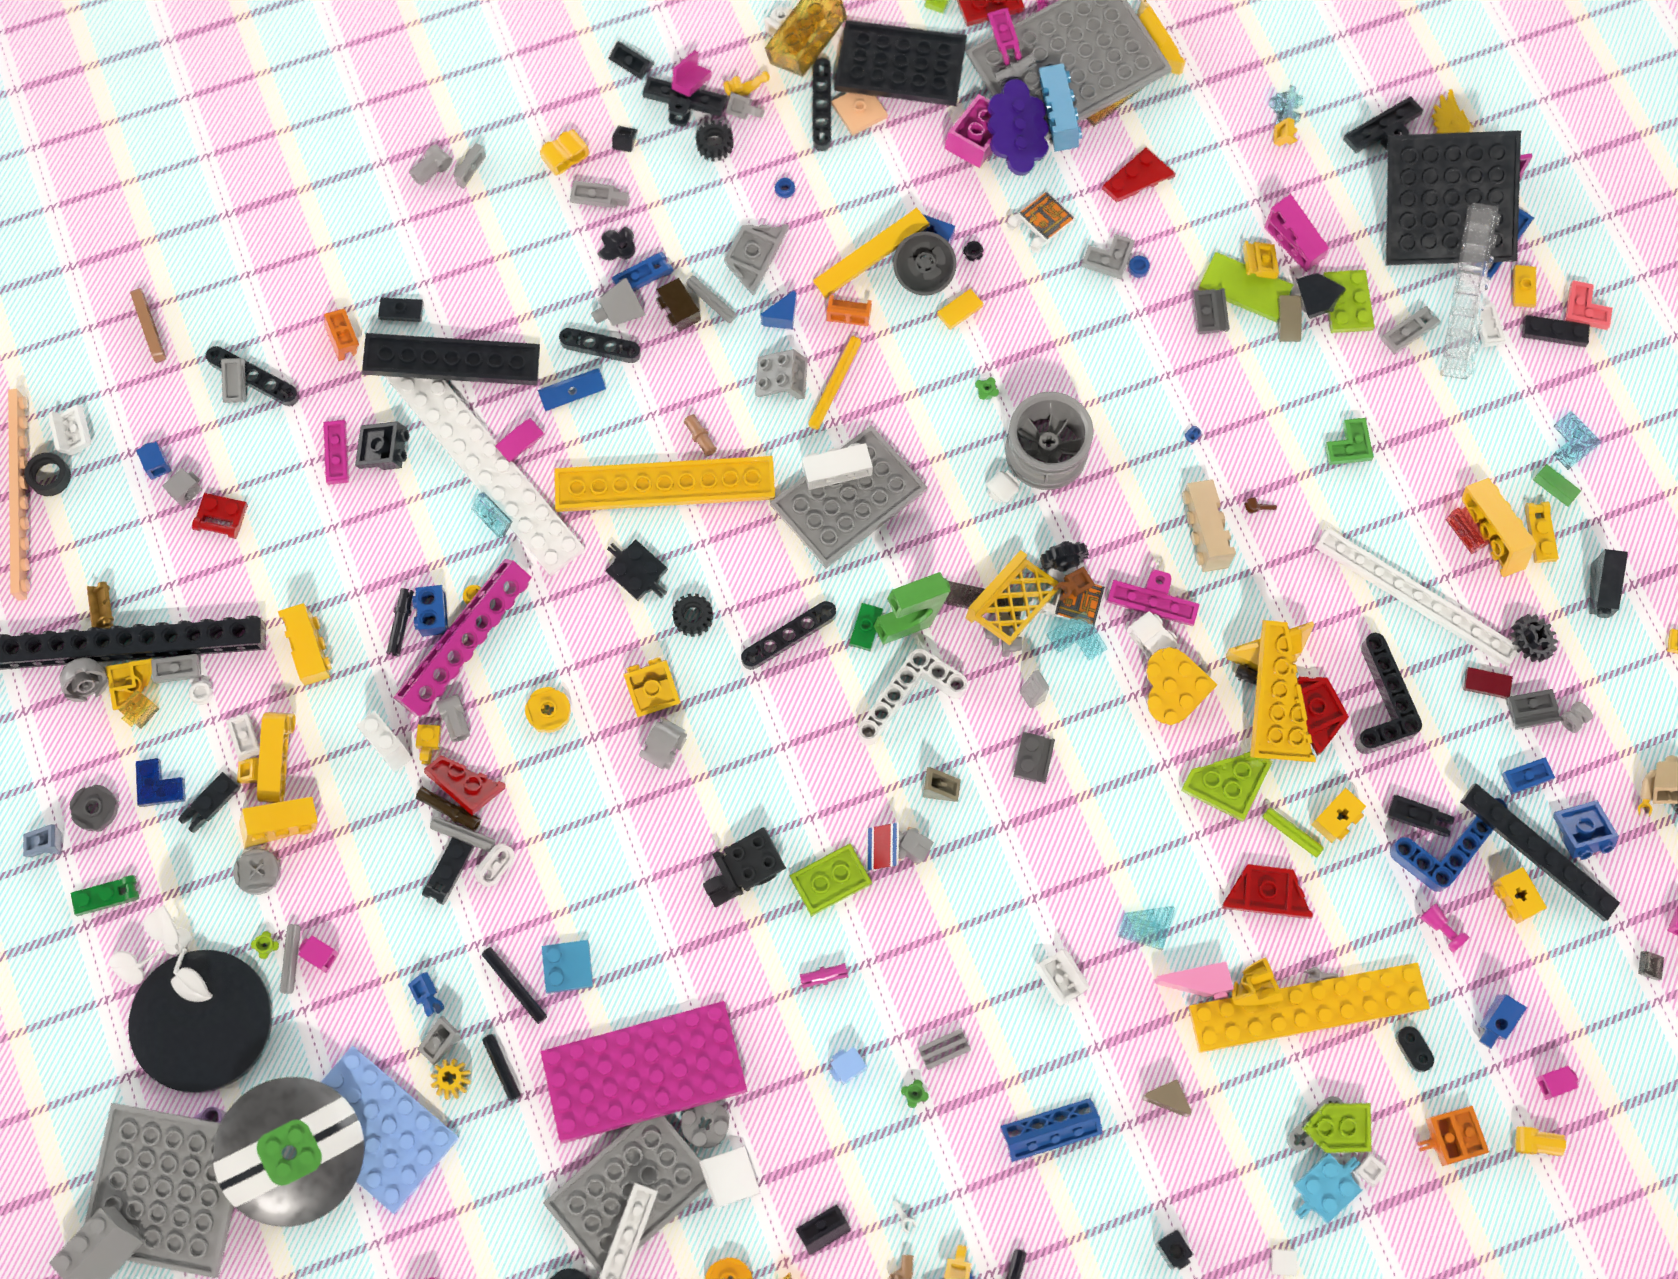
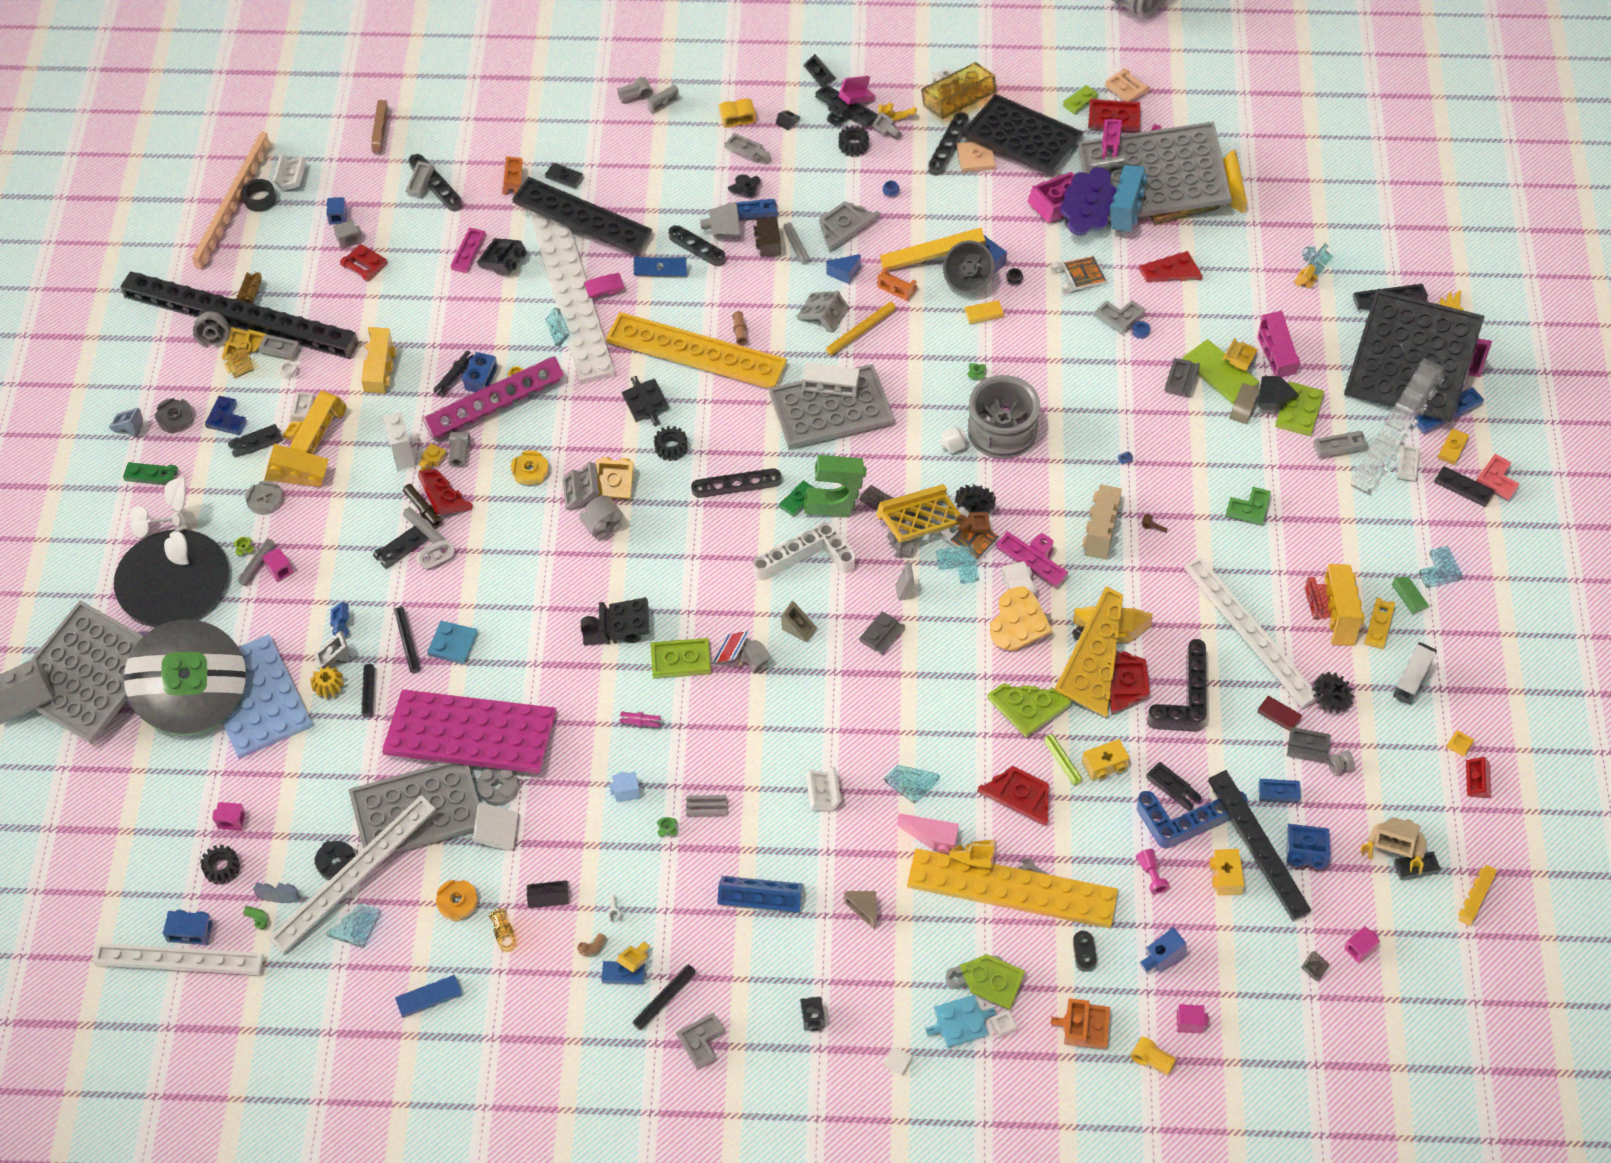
camera: 25 degrees right, 15 degrees down
(619, 712) = (580, 486): none -> light grey slope

